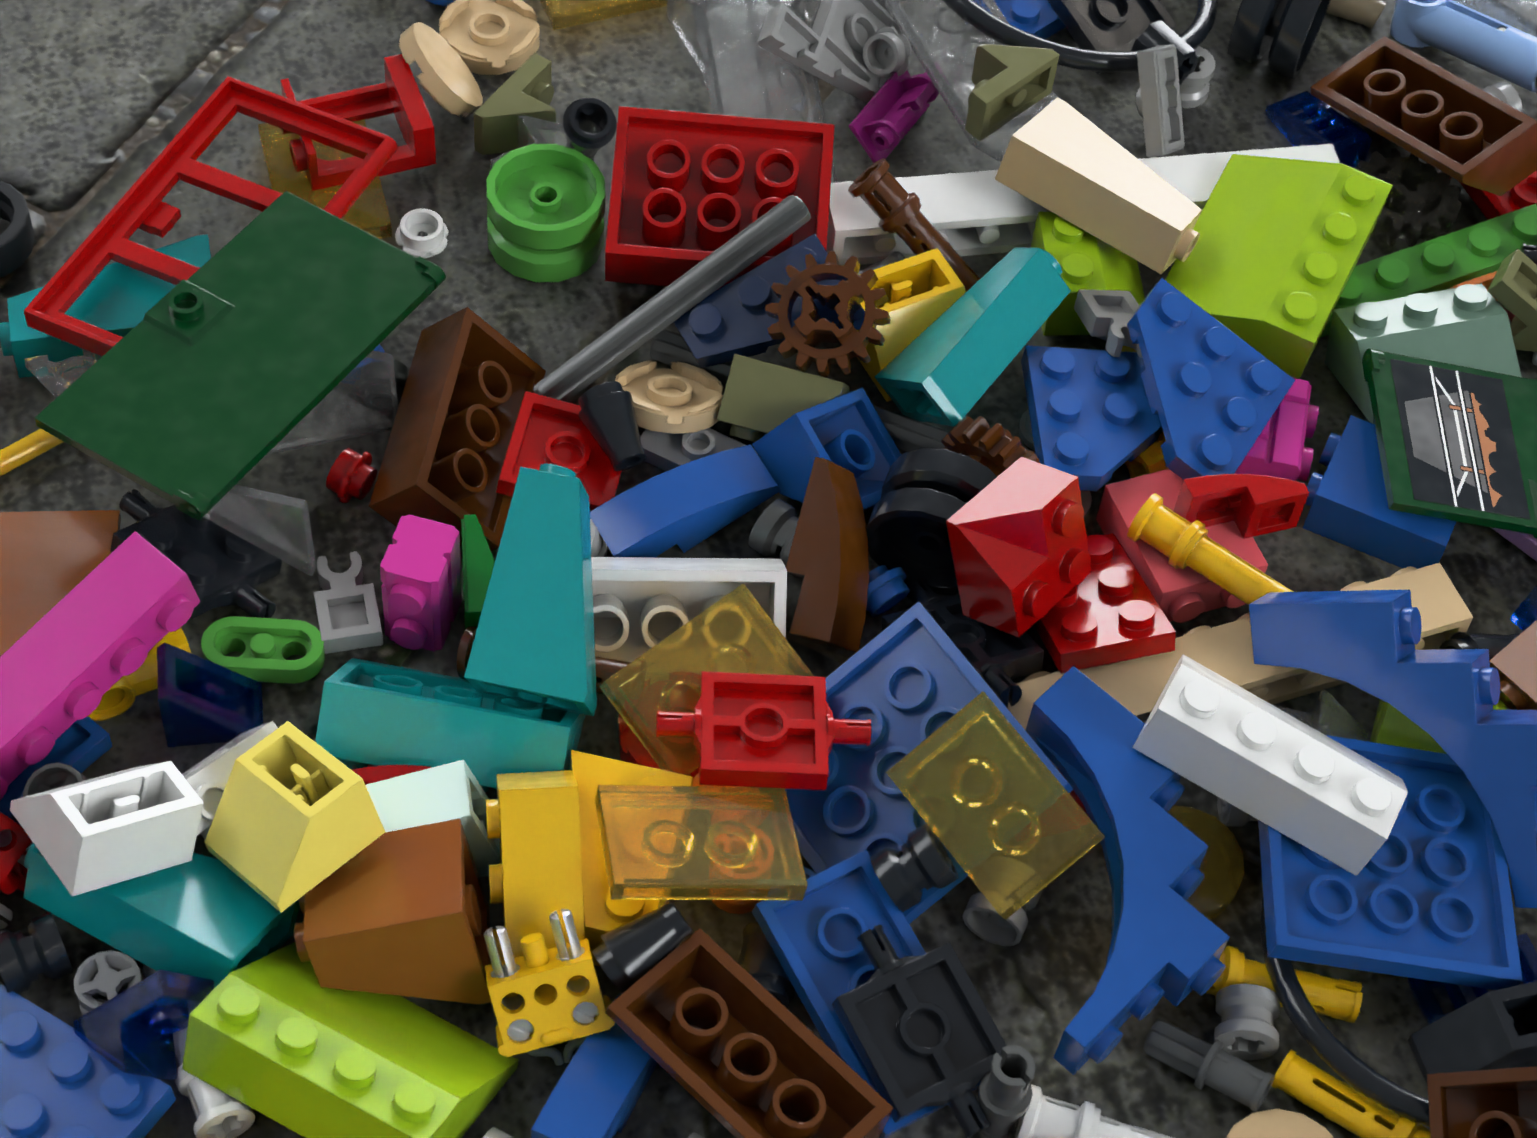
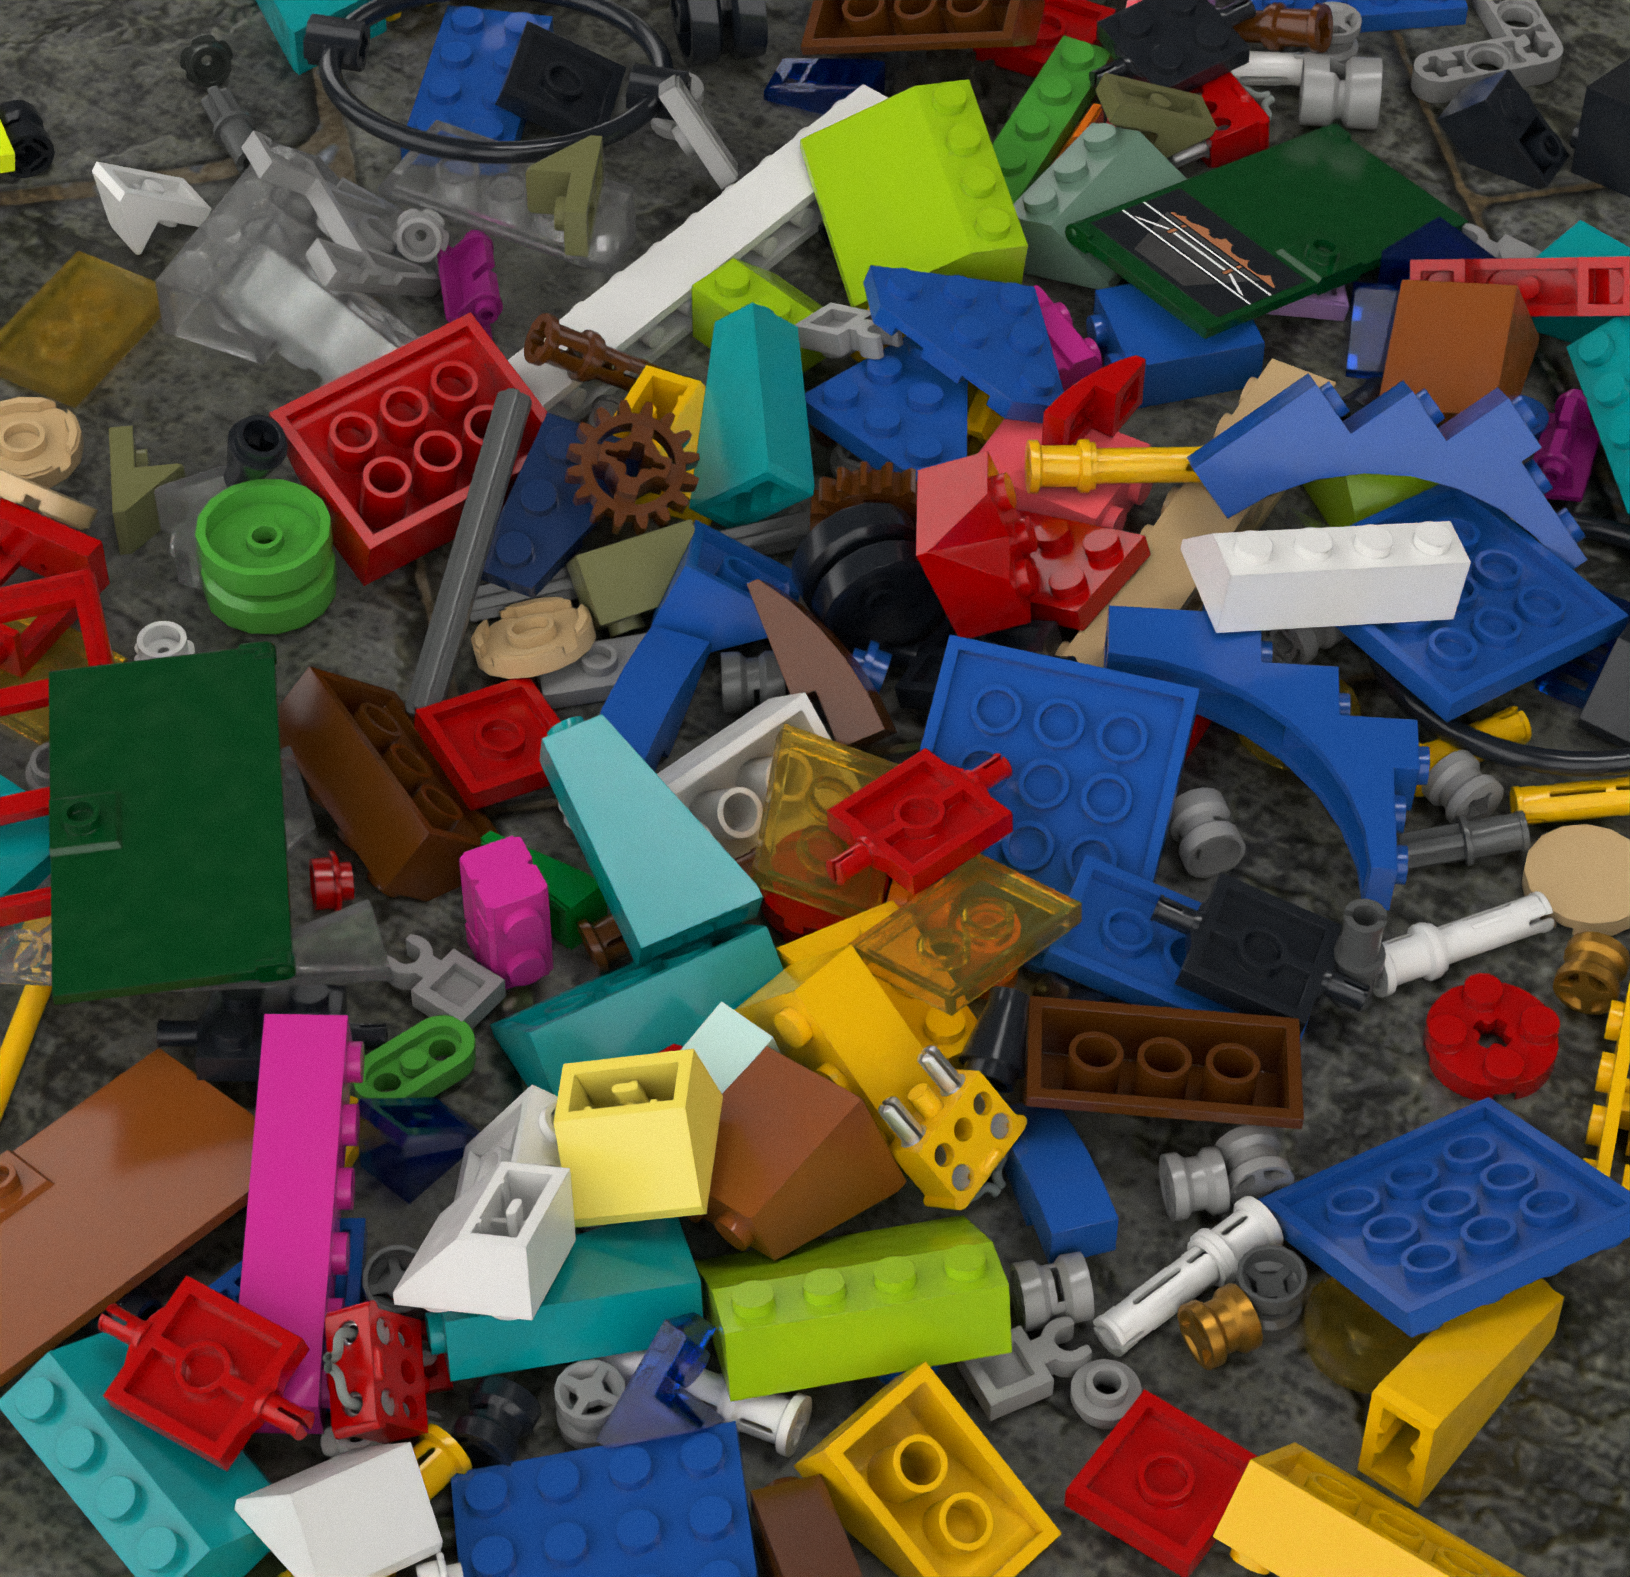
camera: 35 degrees left, 5 degrees down
(612, 422) = (525, 683): black cone -> none
(917, 866) = (1137, 838): black wheel -> none
(995, 805) = (1157, 746): clear yellow tile -> none
(1099, 187) = (734, 229): tan slope -> none

